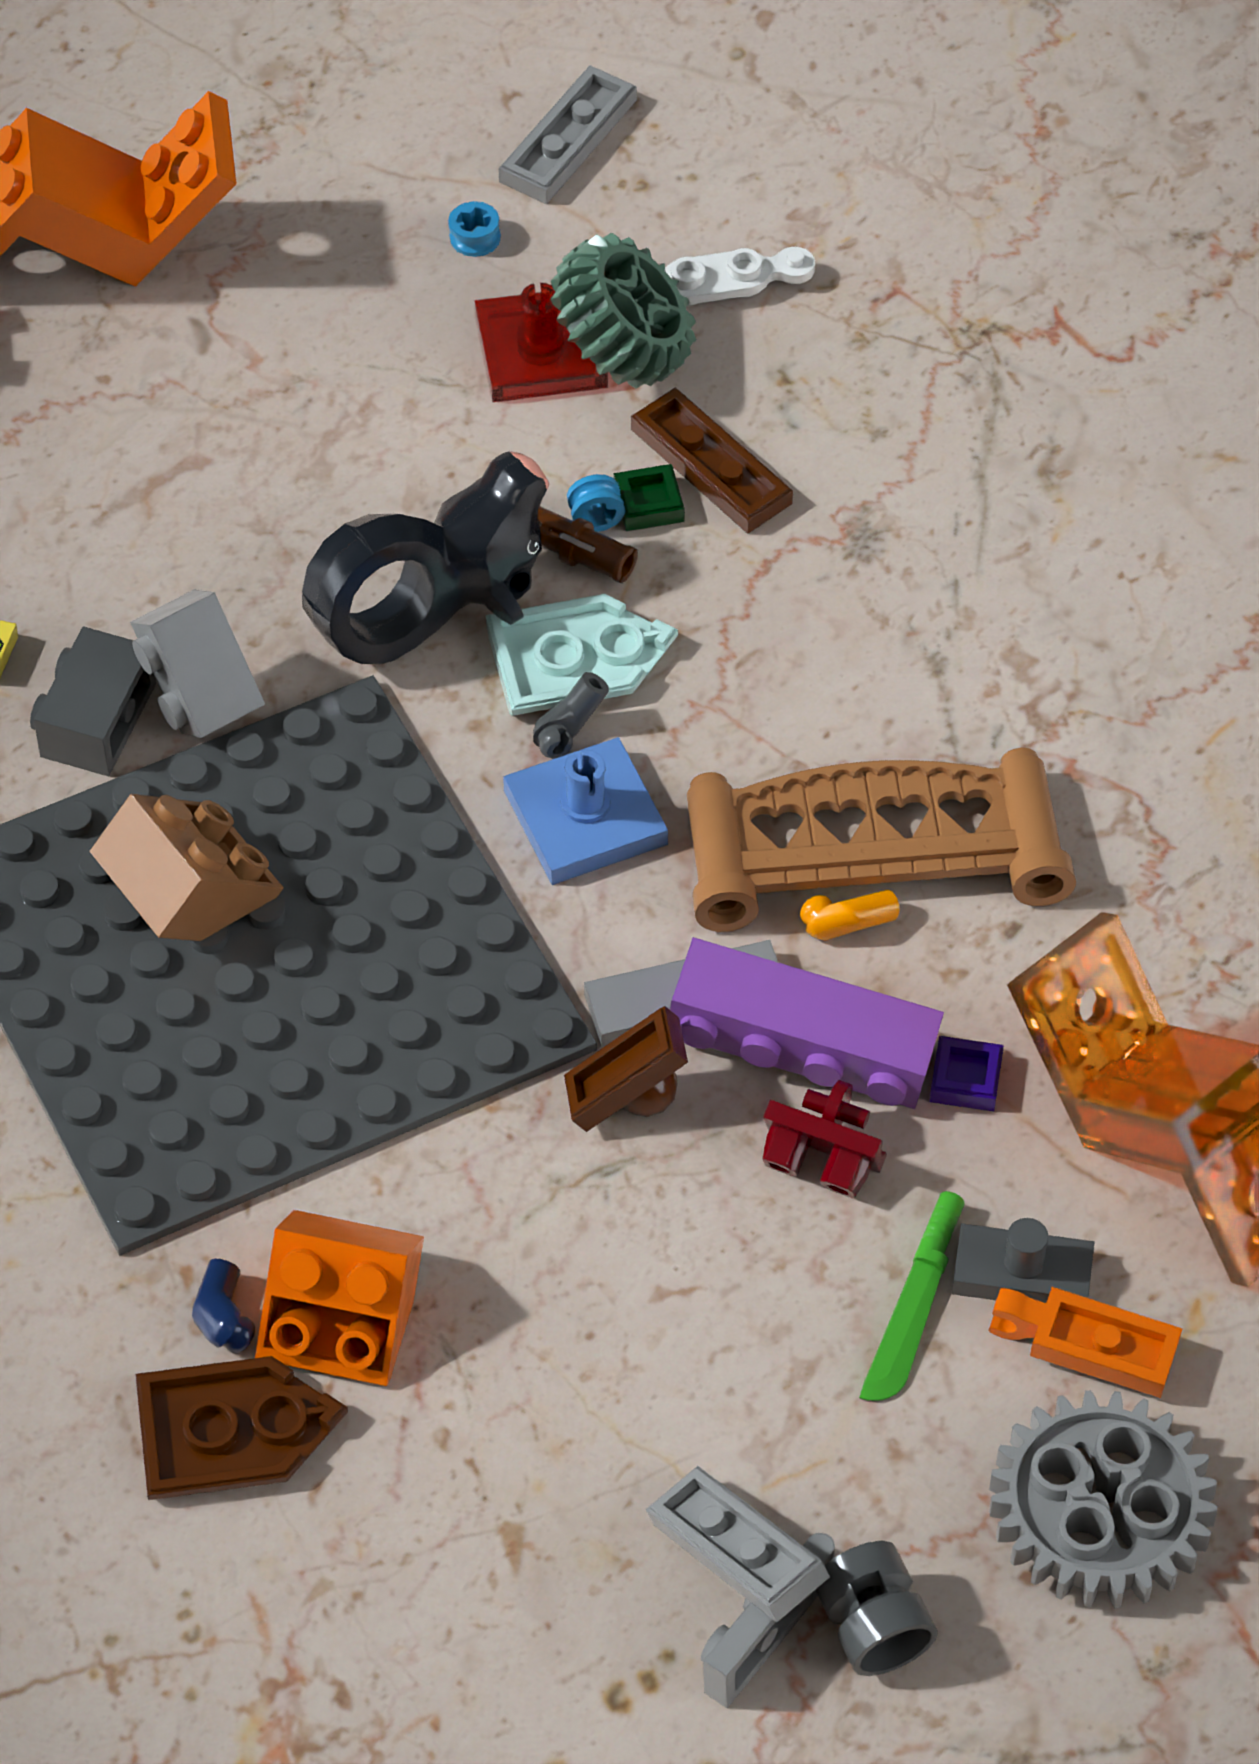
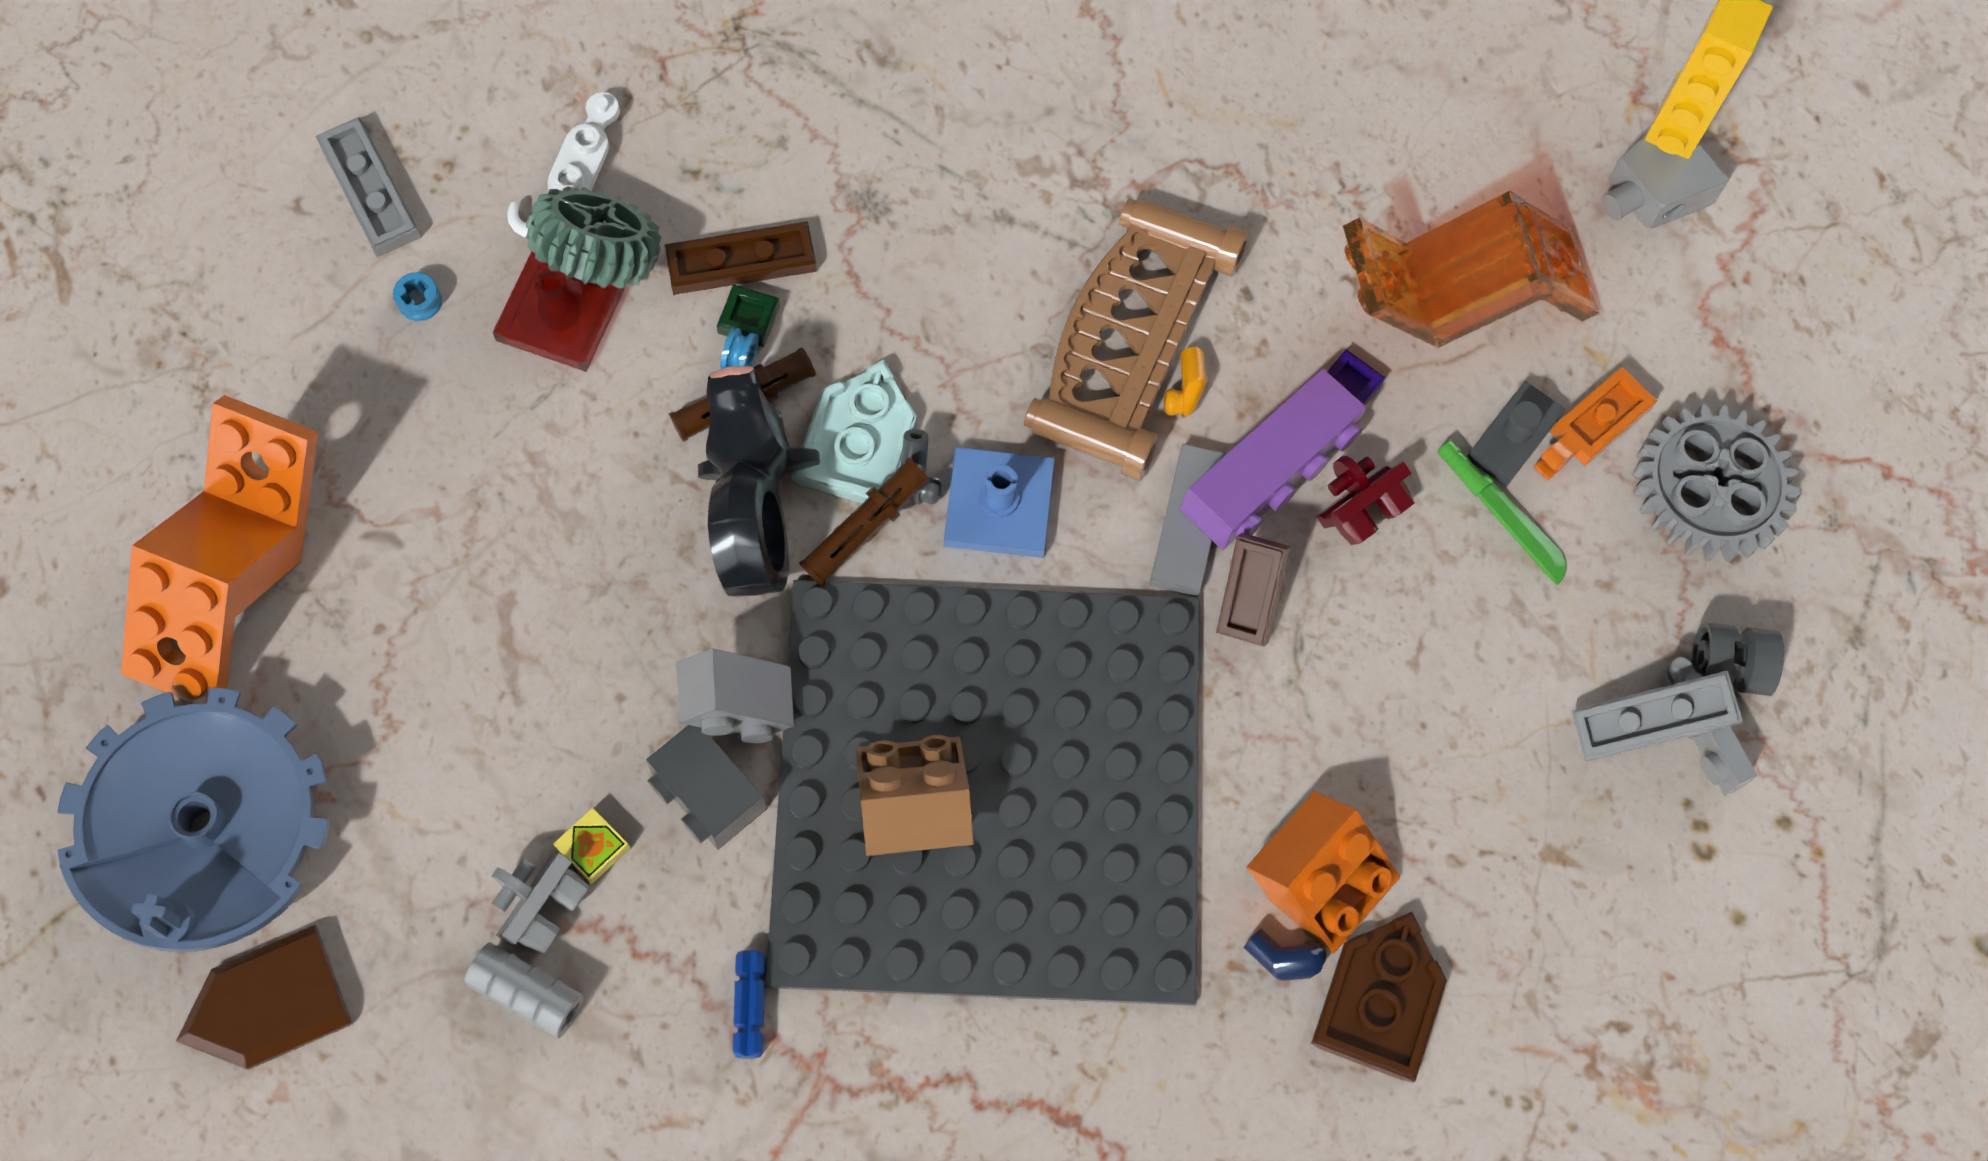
camera: 65 degrees left, 15 degrees up
(495, 694) = (907, 479): none -> reddish brown pin

